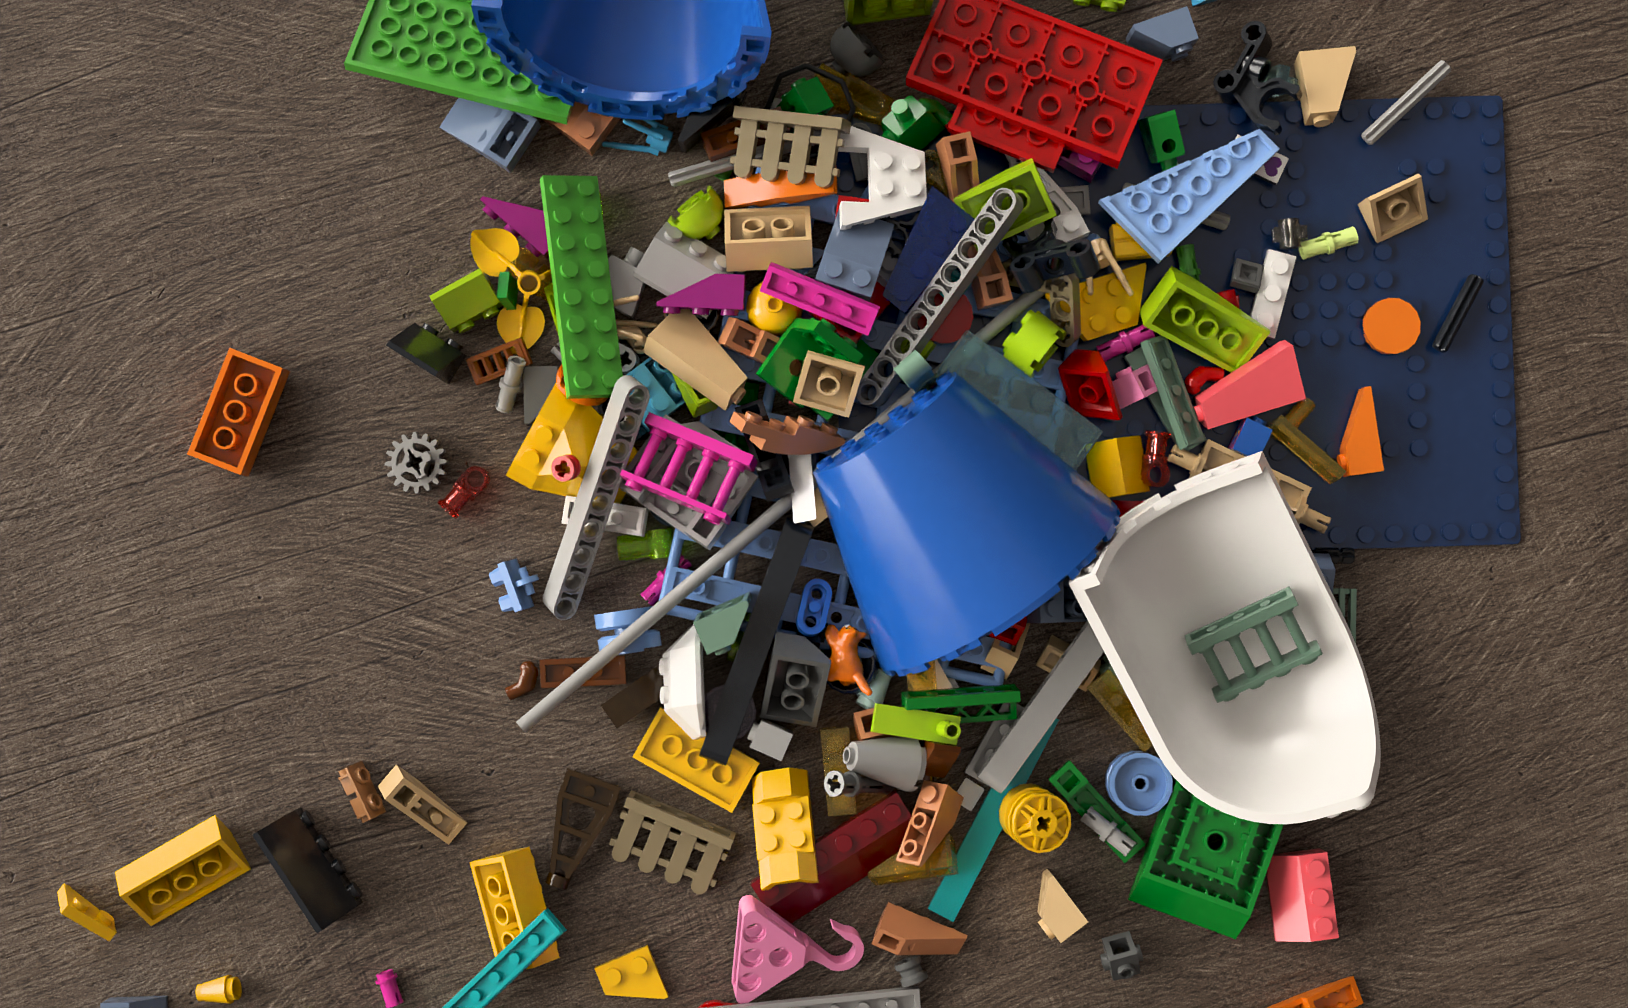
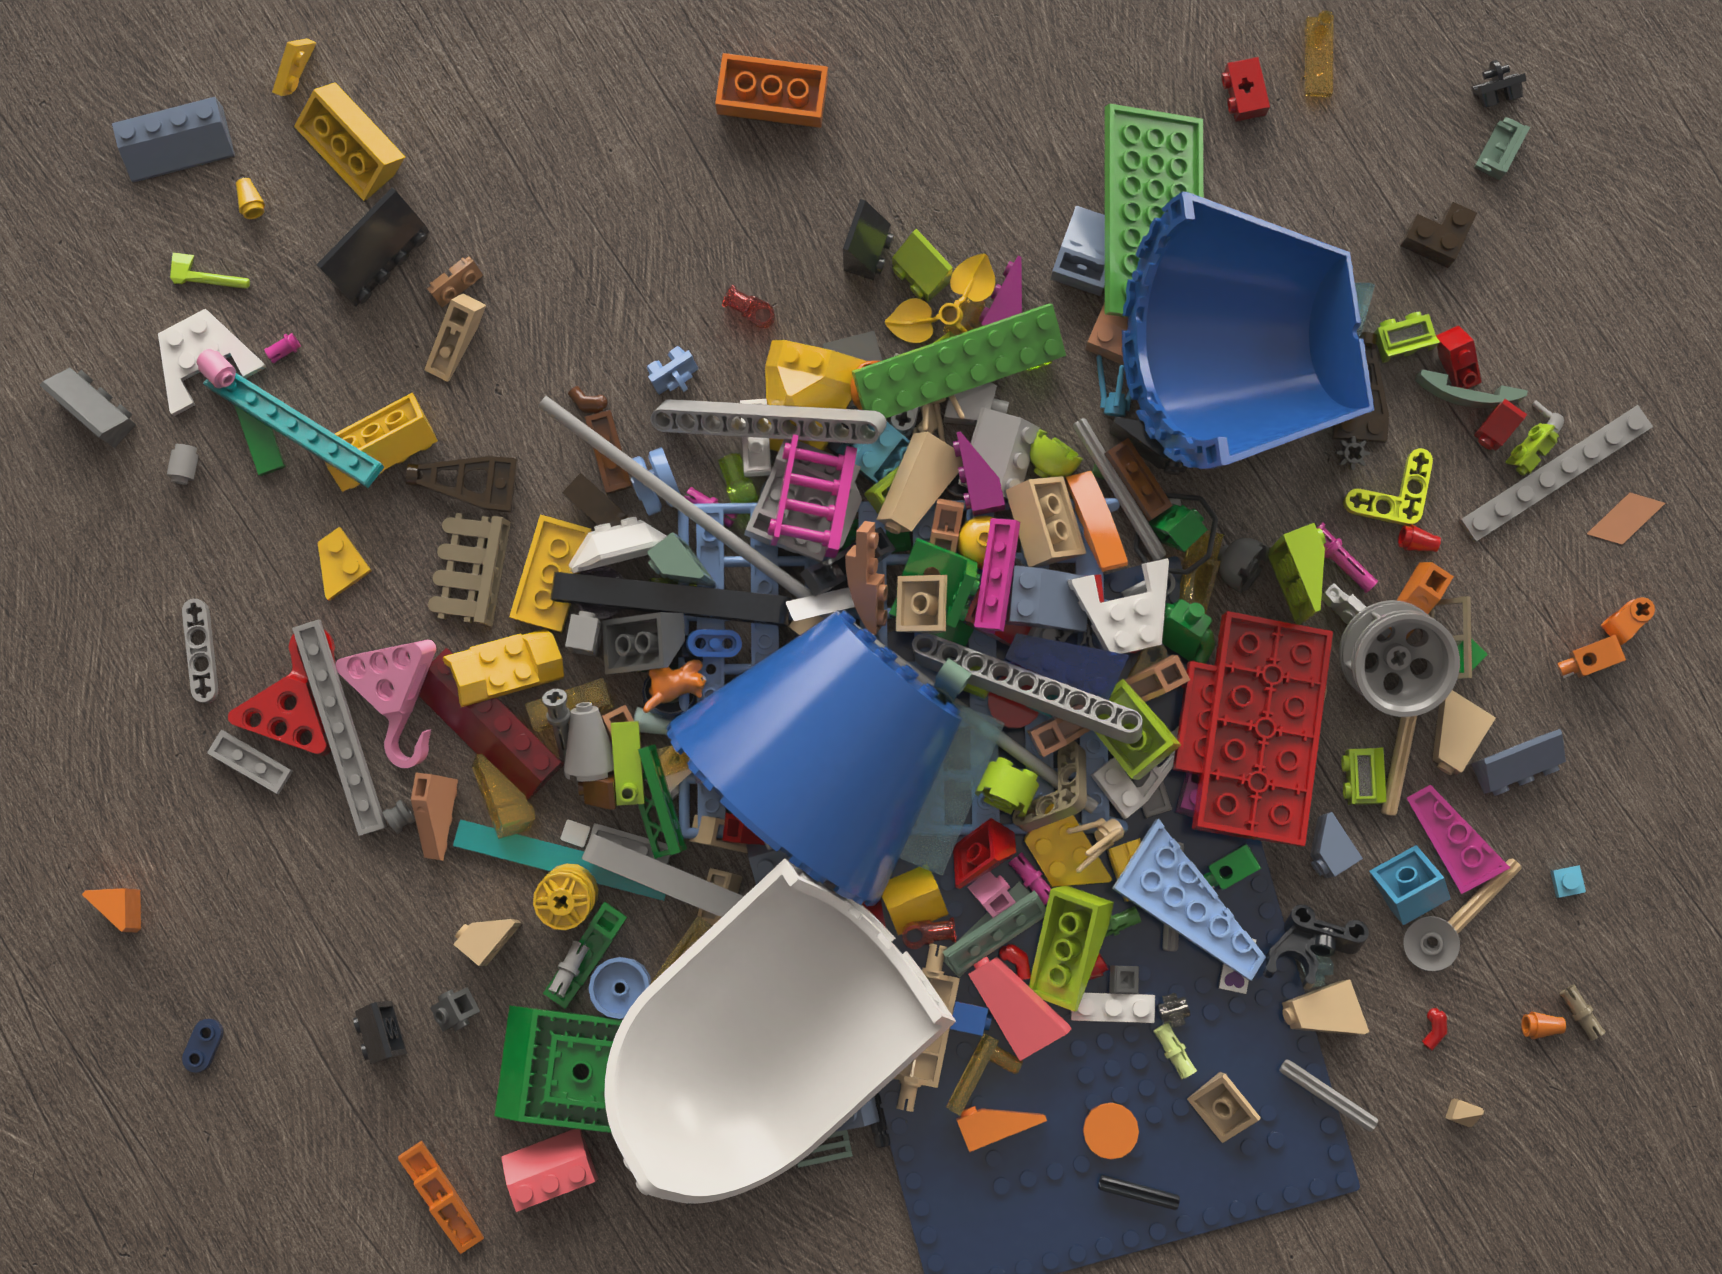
camera: 85 degrees right, 5 degrees down
(405, 468) = (771, 250): light grey gear -> none
(477, 368) = (864, 295): dark orange slope -> none
(507, 290) = (938, 298): green tile -> none
(510, 384) = (855, 323): light grey pin -> none
(557, 471) = (783, 381): bush -> none
(801, 144) = (1140, 528): dark tan fence -> none
(930, 822) = (540, 799): nougat slope -> none
(1049, 258) = (1088, 779): black piece -> none
(1253, 617) = (800, 1058): sand green fence -> none

